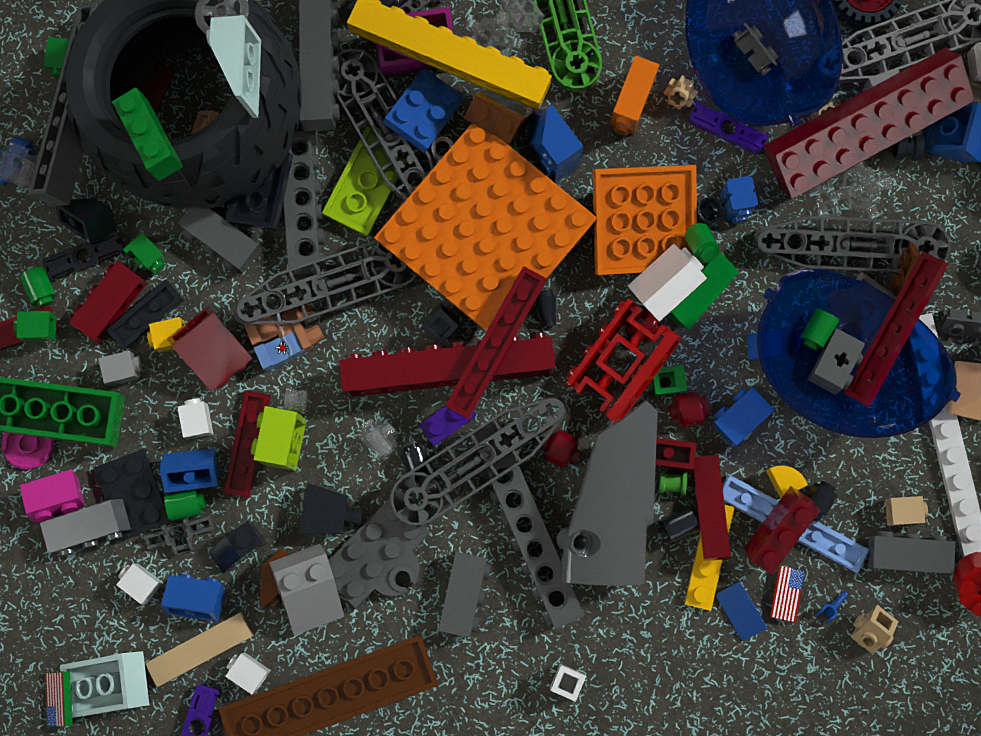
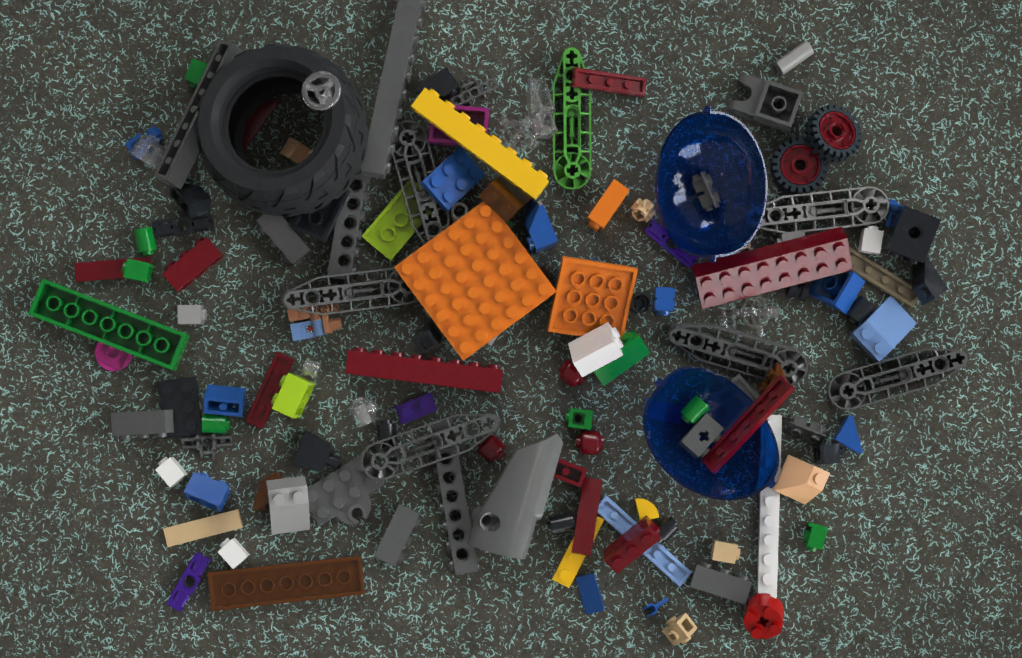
camera: 10 degrees right, 5 degrees up
(52, 496) = (123, 395): dark pink brick -> none
(58, 699) = (97, 538): tile -> none
(107, 684) = (131, 536): light aqua slope -> none
(146, 254) = (228, 236): green brick -> none
(147, 134) = (249, 167): green brick -> none
(147, 311) = (217, 280): black plate -> none
(162, 331) = (230, 298): yellow brick -> none
(195, 419) = (236, 364): white brick -> none
(210, 349) = (258, 317): dark red brick -> none
(237, 546) = (246, 462): black slope -> none
(239, 56) = (325, 128): light aqua slope -> none
(496, 342) = (461, 365): dark red plate -> none
(546, 308) = (505, 344): black cone -> none
(567, 682) = (455, 613): white brick -> none
(605, 347) = (559, 409): red fence -> none
(672, 482) = (564, 491): bright green bush -> none
(702, 243) = (628, 327): green brick -> none
(742, 416) = (626, 457): blue brick -> none
(786, 593) = (625, 589): tile -> none

